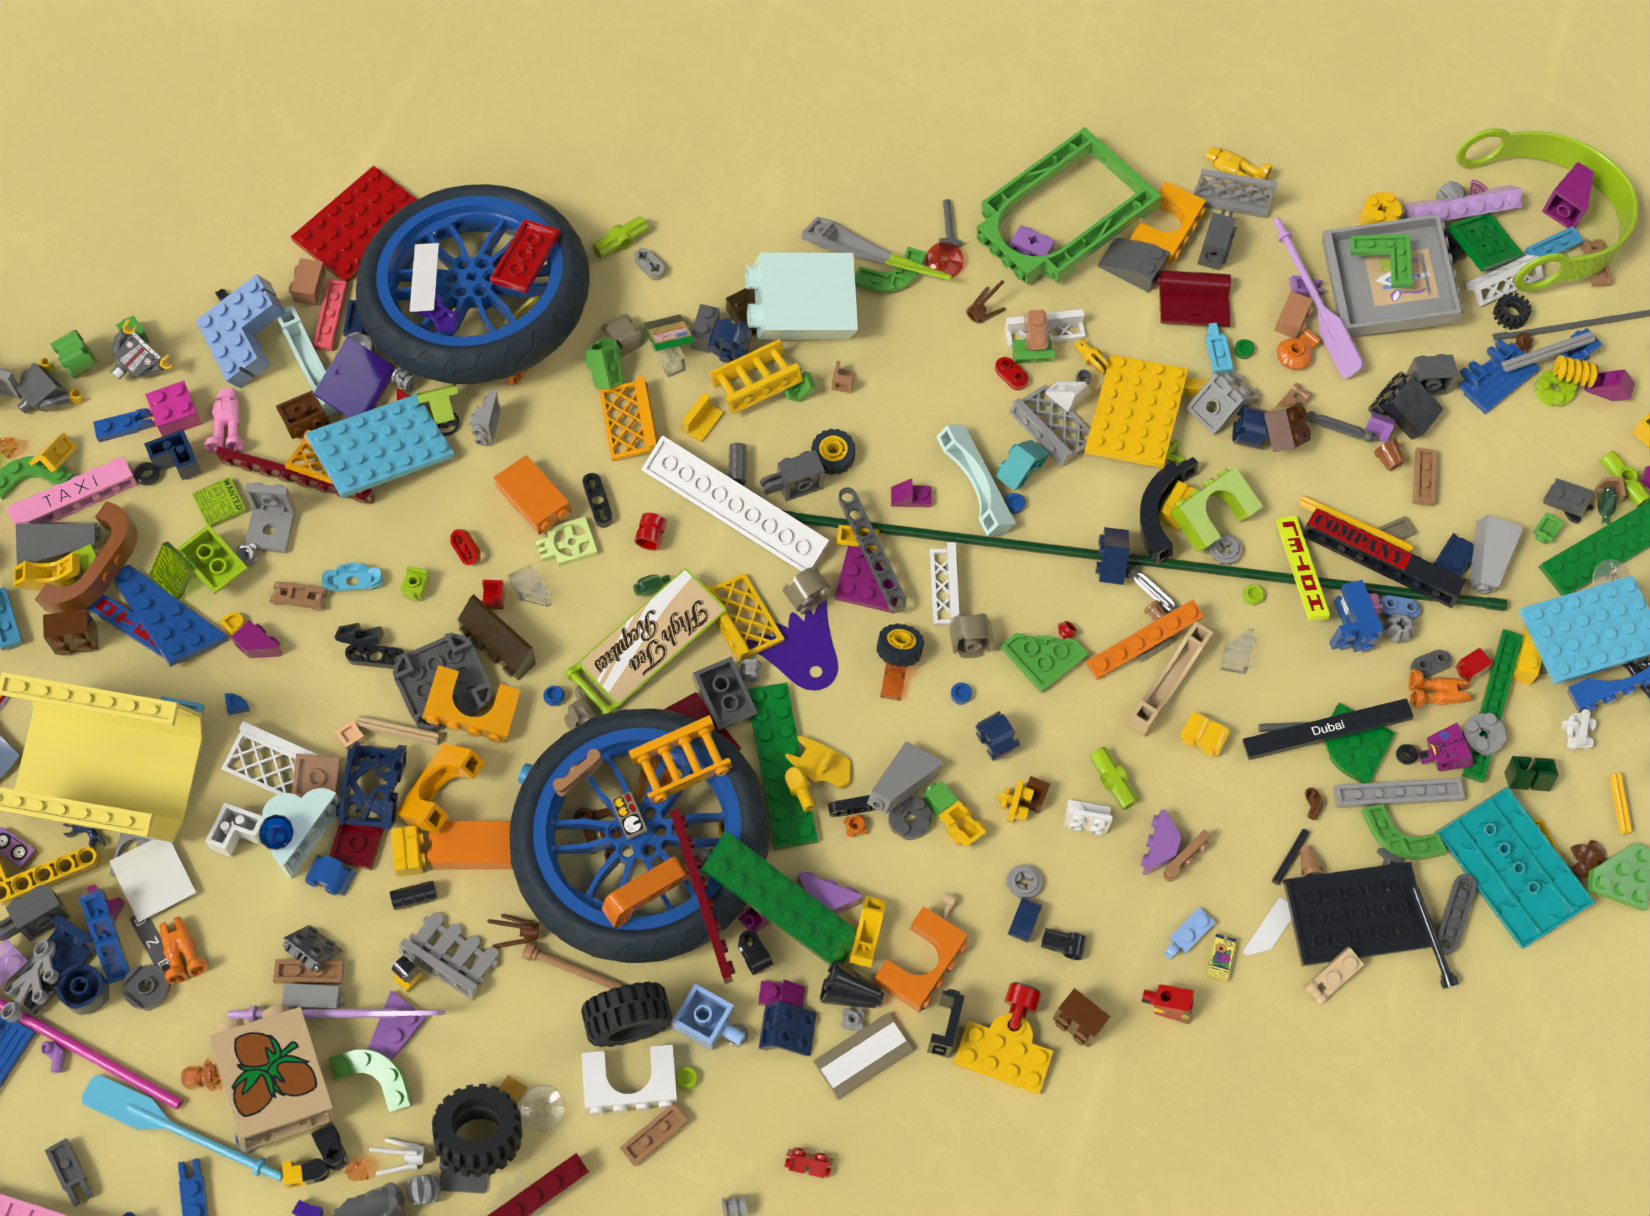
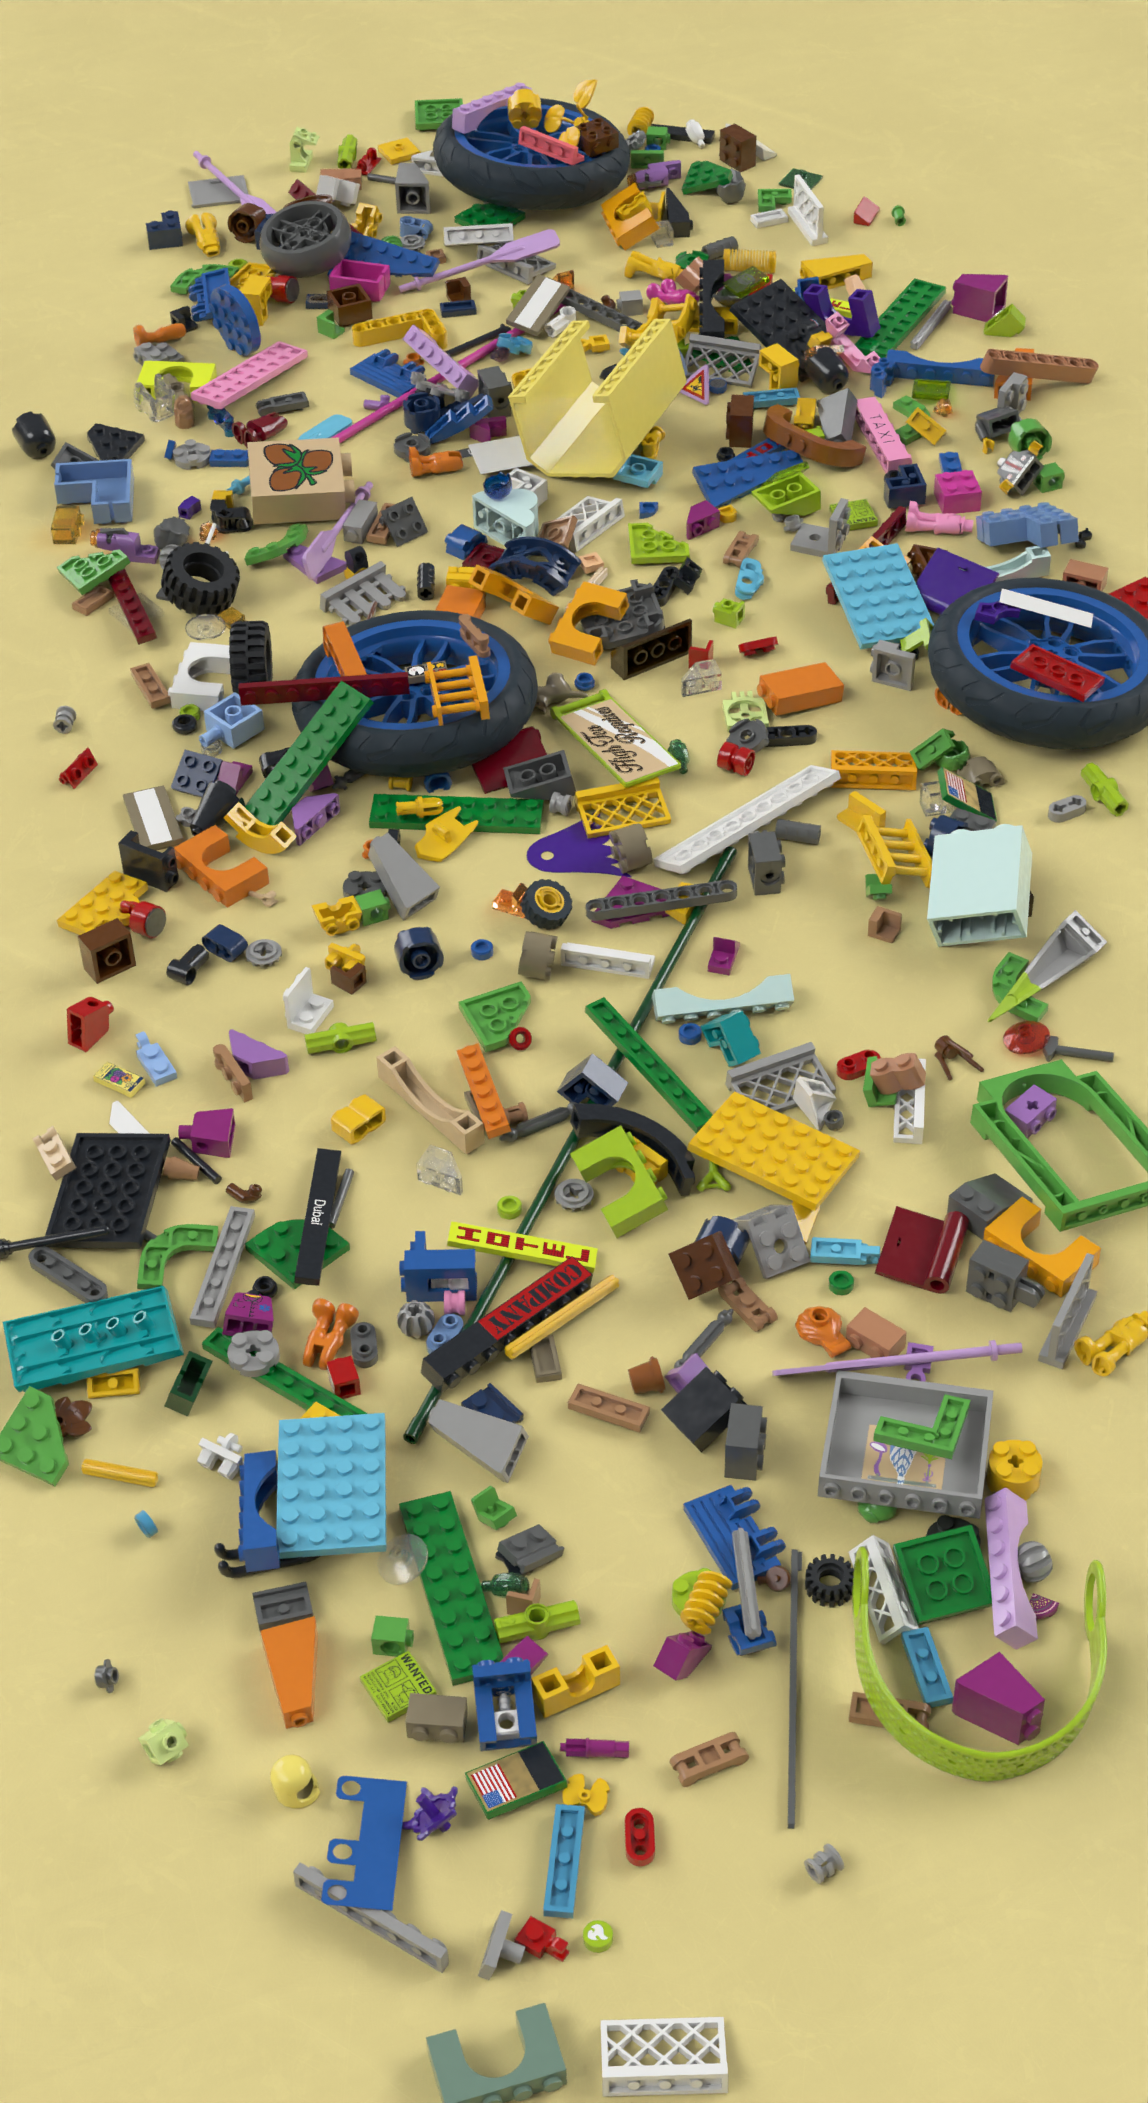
camera: 110 degrees right, 20 degrees down
(121, 639) = (725, 454): none -> black plate
(128, 1174) = (259, 429): none -> dark red piece
(307, 680) = (654, 546): none -> lime plate
(628, 529) = (754, 729): none -> dark grey plate
(707, 1067) = (184, 724): none -> black piece
(834, 440) = (792, 901): black wheel -> none
(1072, 519) = (649, 1064): none -> green plate
(1091, 355) = (859, 1133): yellow arm -> none
(1261, 850) = (211, 1132): none -> magenta torso

